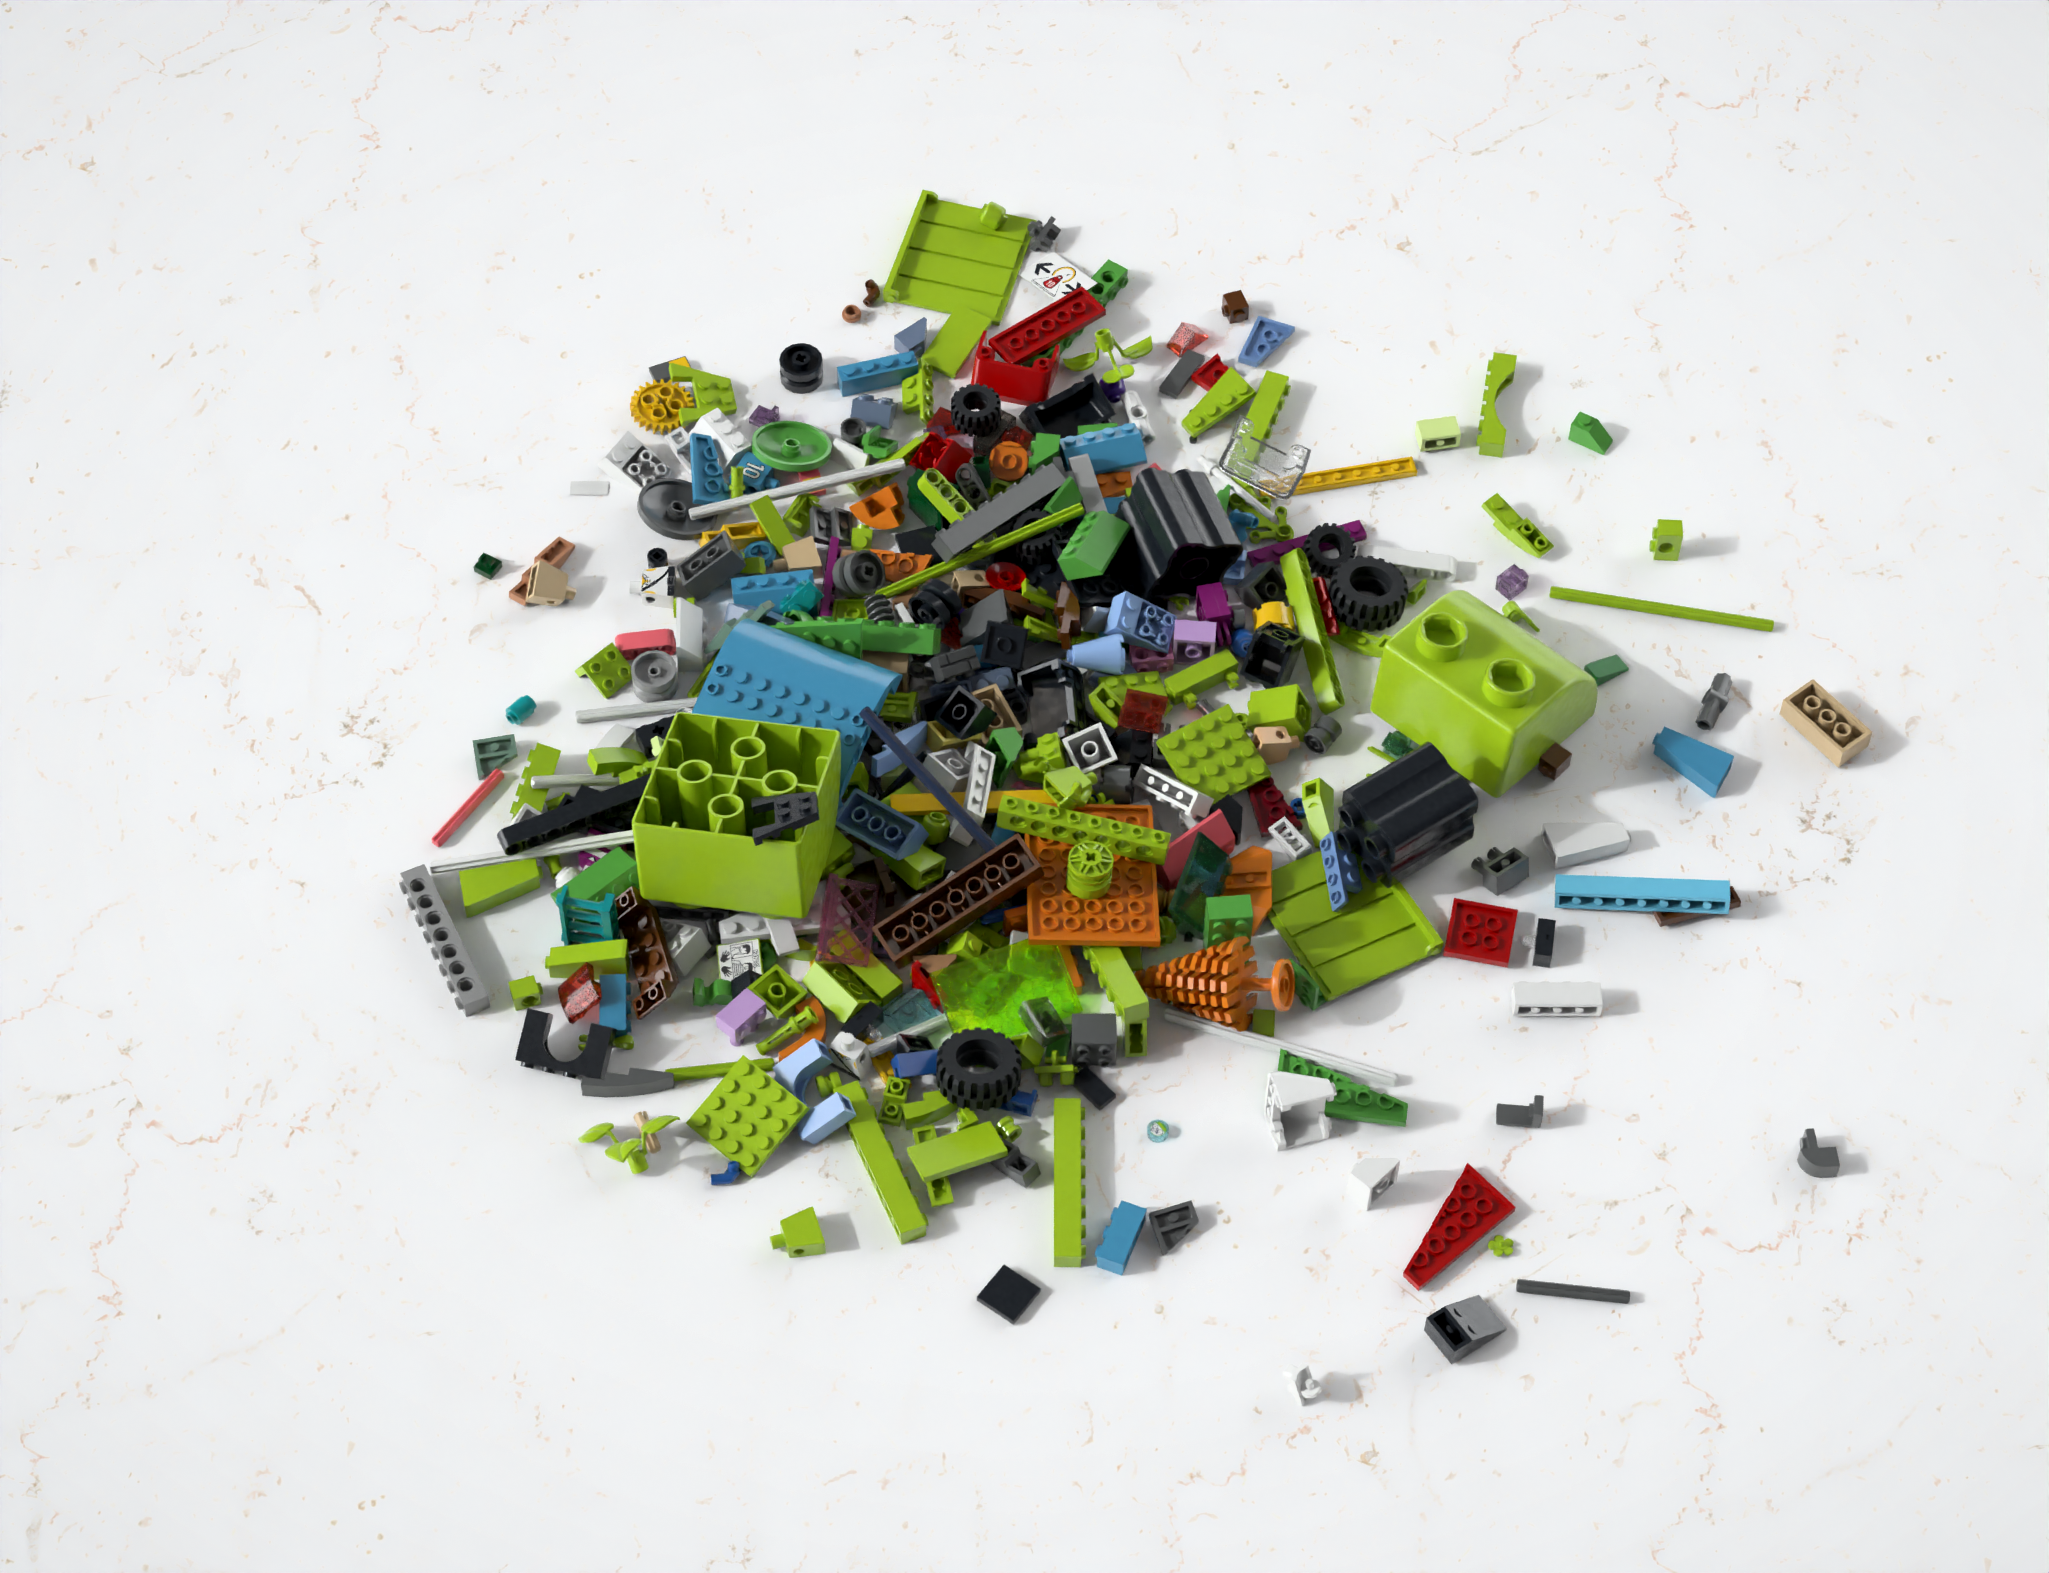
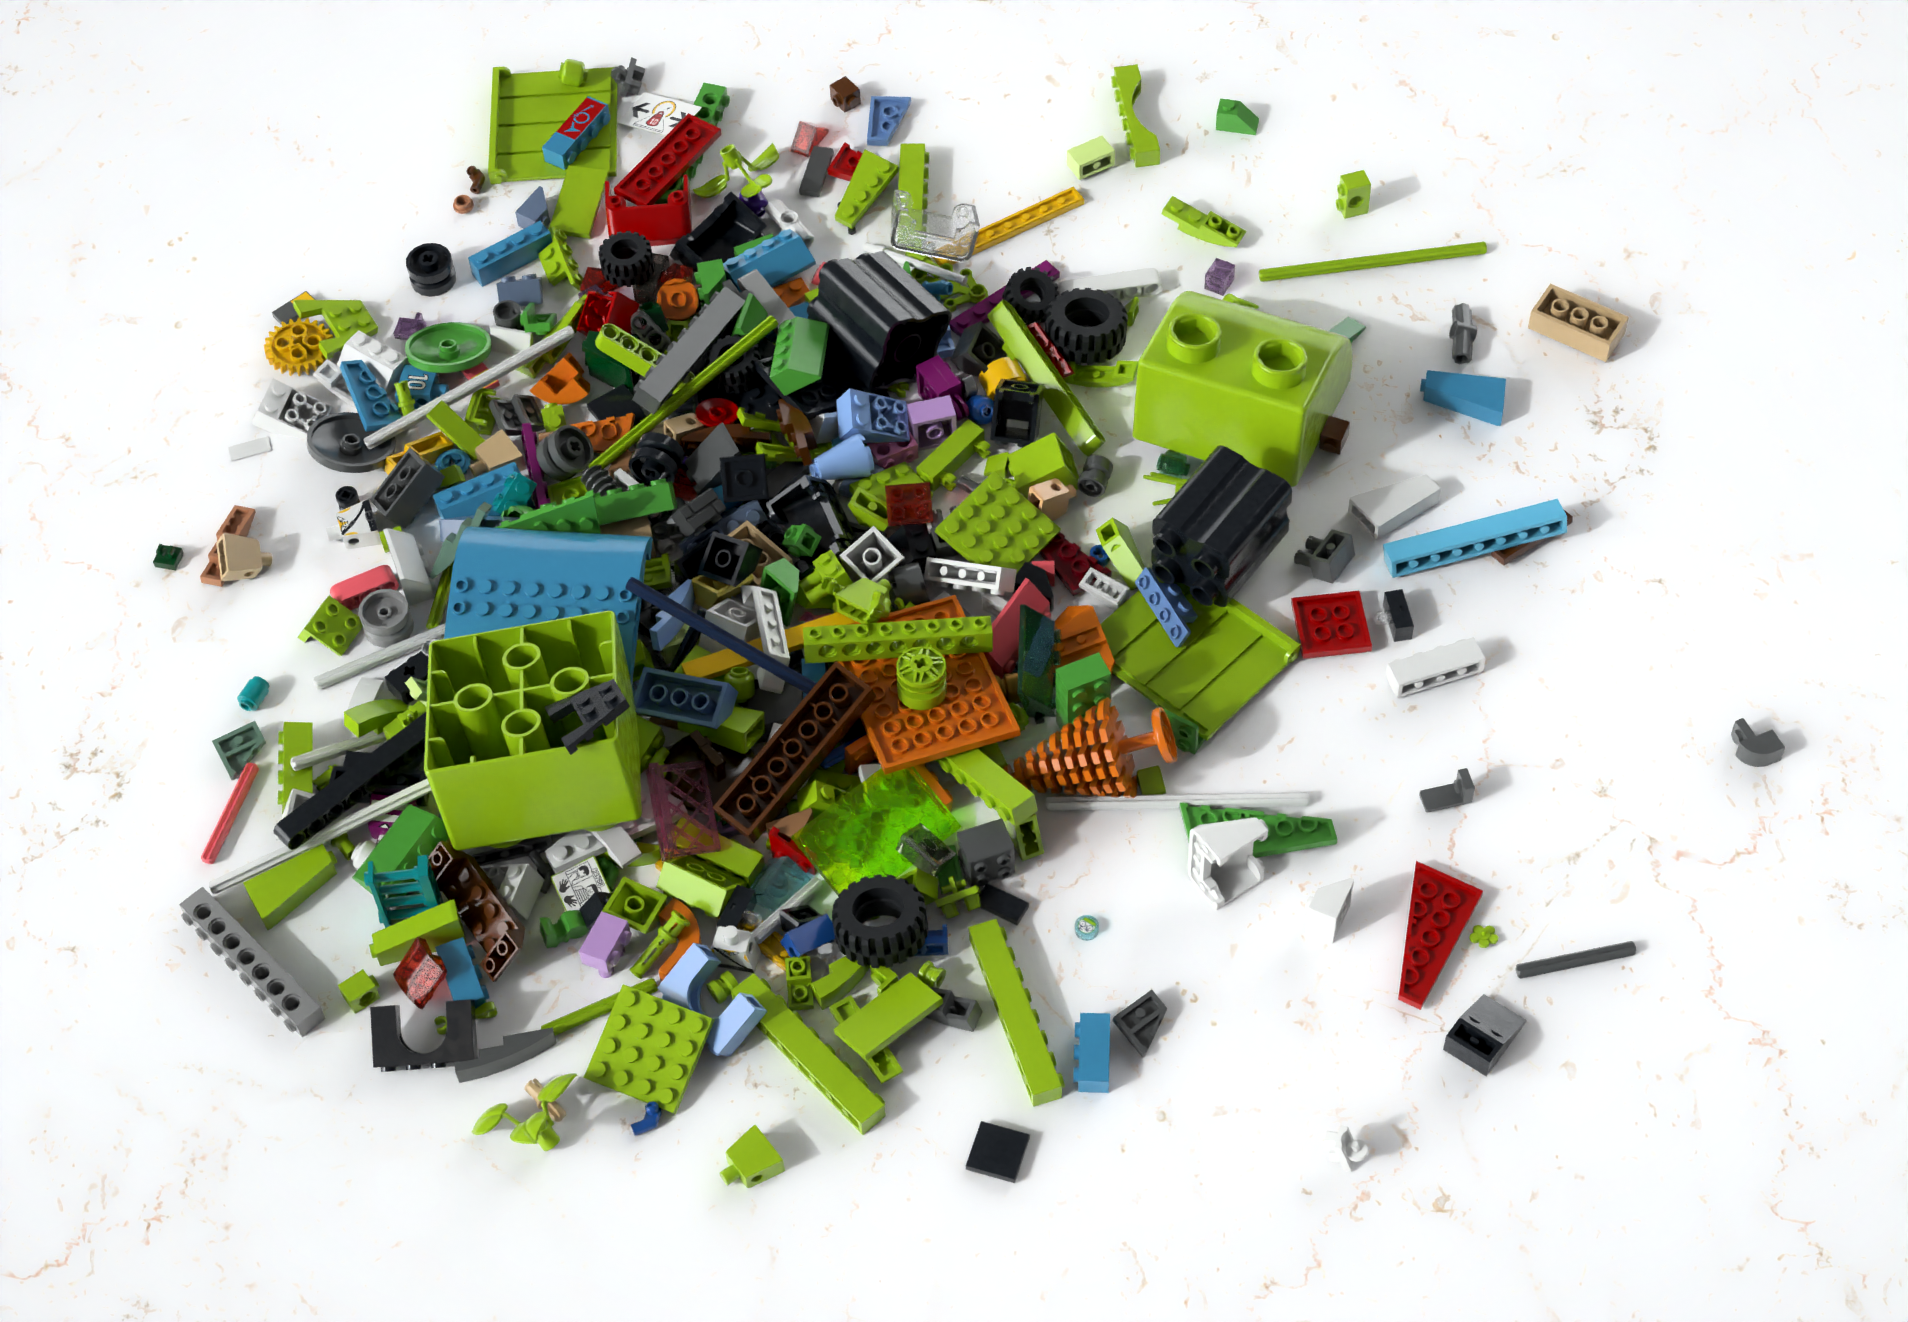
camera: 15 degrees left, 0 degrees up
(975, 275) = (576, 133): none -> dark azure brick
(1036, 715) = (801, 540): none -> bright green brick
(1239, 698) = (997, 463): none -> lime slope
(1247, 805) = (1048, 566): none -> coral slope

